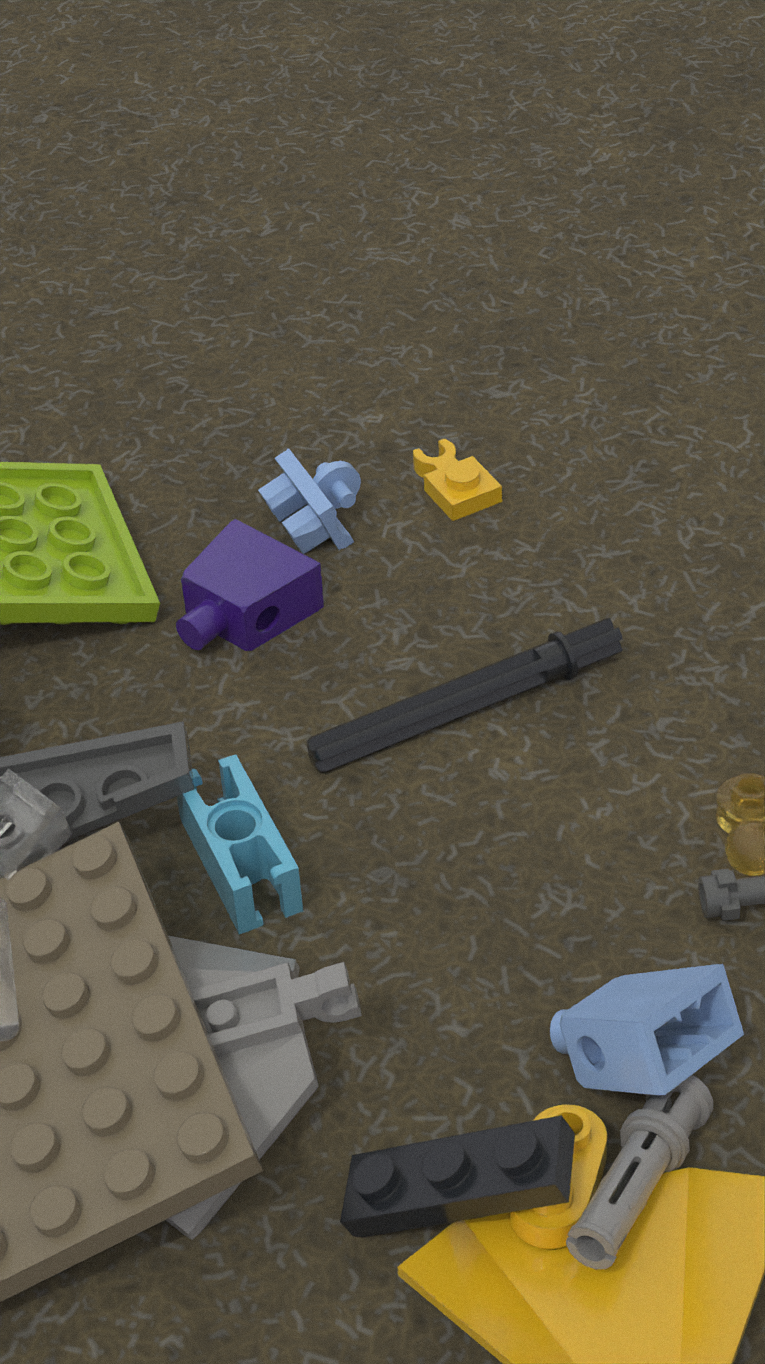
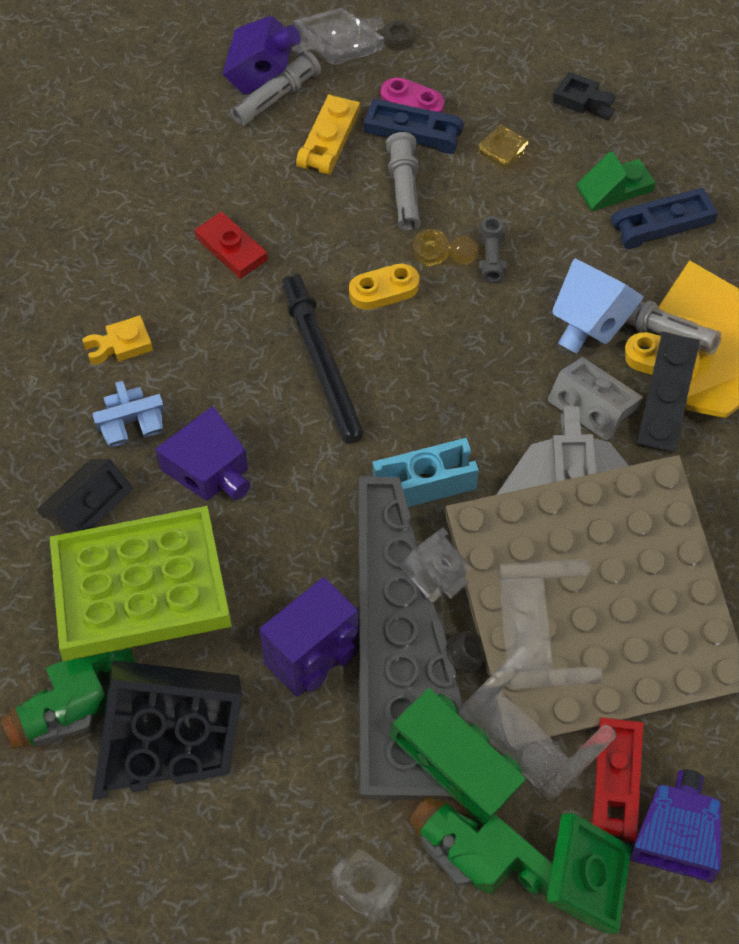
camera: 85 degrees left, 15 degrees up
(167, 490) = (86, 496): none -> black panel
(456, 1074) = (600, 397): none -> light grey bracket
(634, 749) = (385, 286): none -> yellow plate
(676, 564) = (231, 245): none -> red plate

